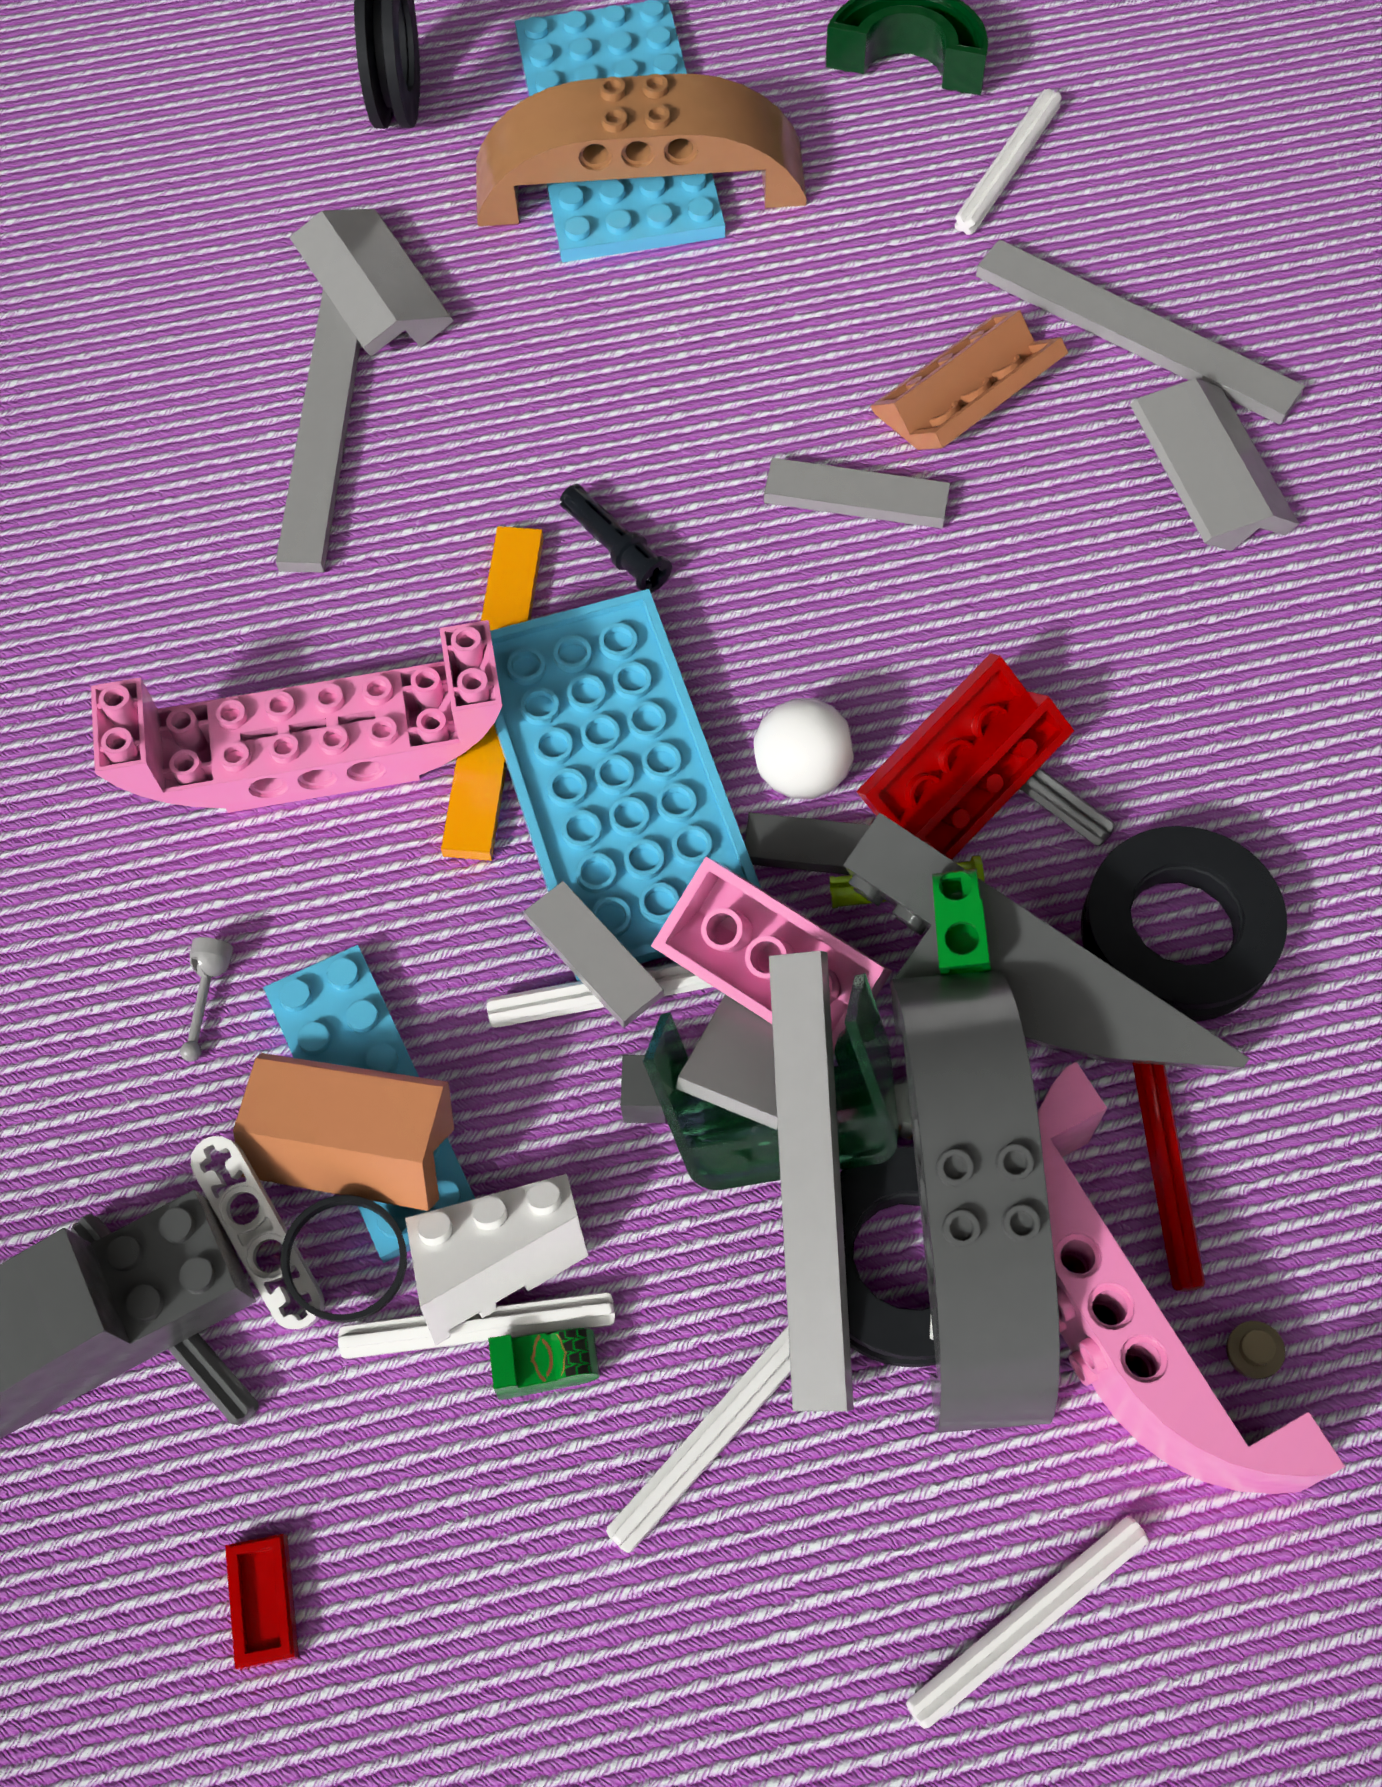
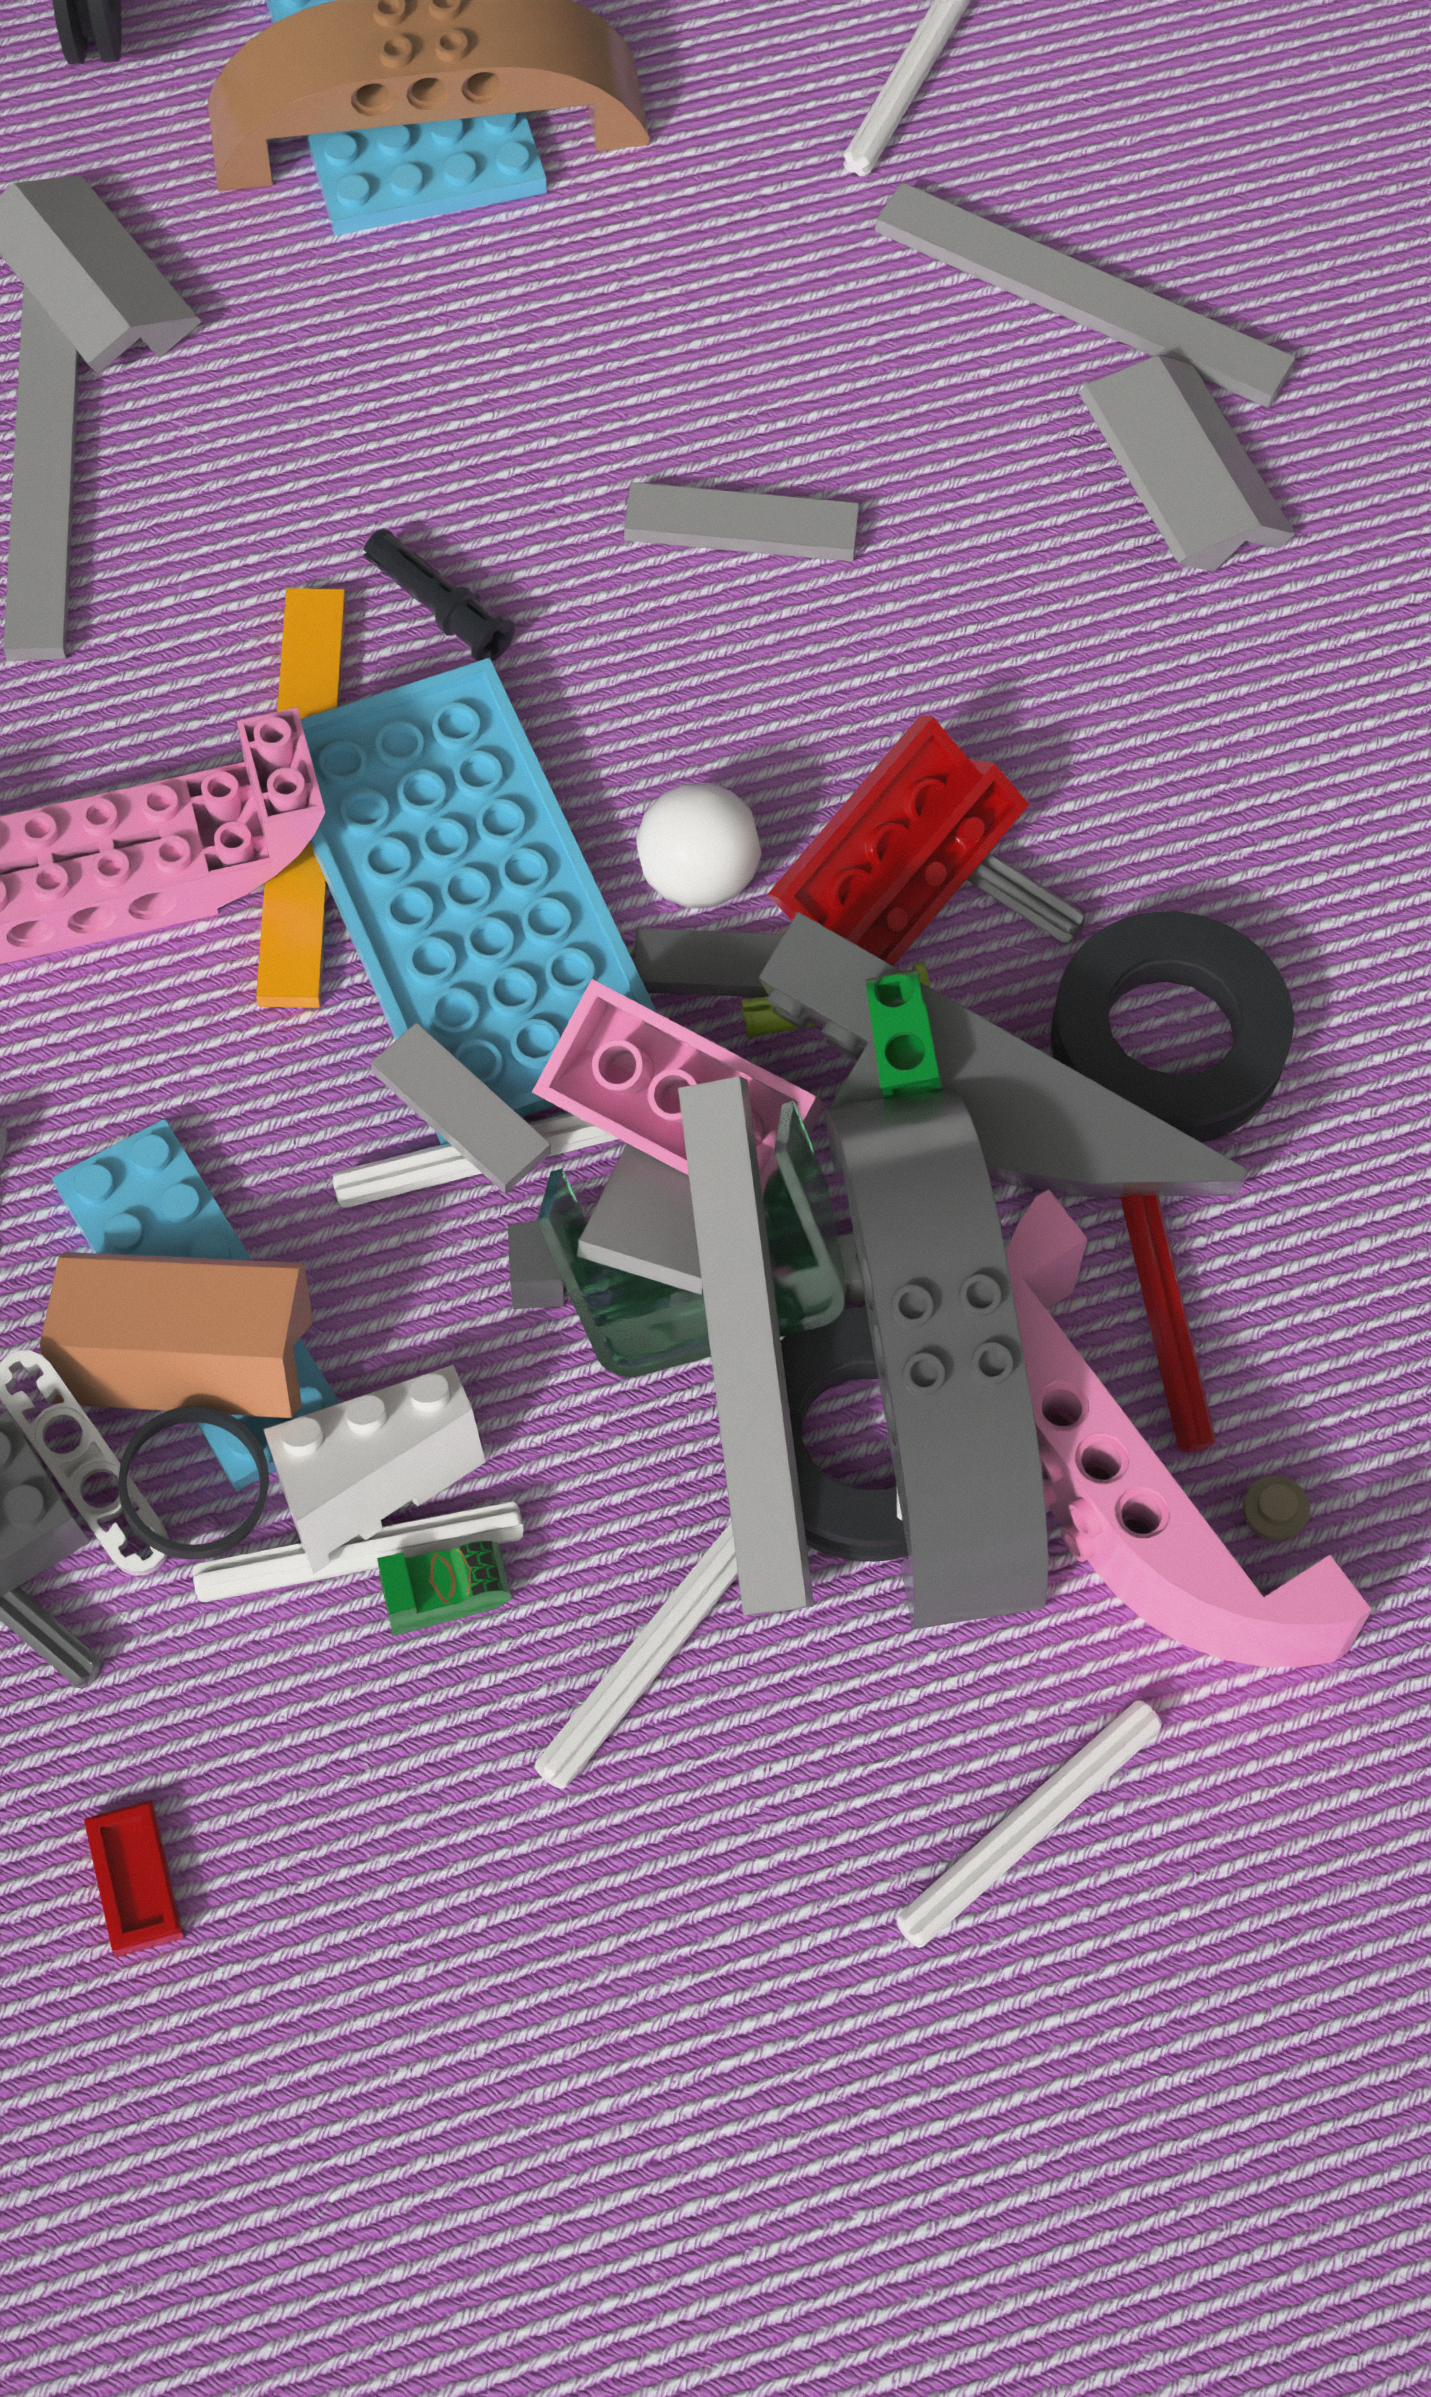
camera: 10 degrees left, 0 degrees up
(967, 381) = (872, 371): nougat slope -> none

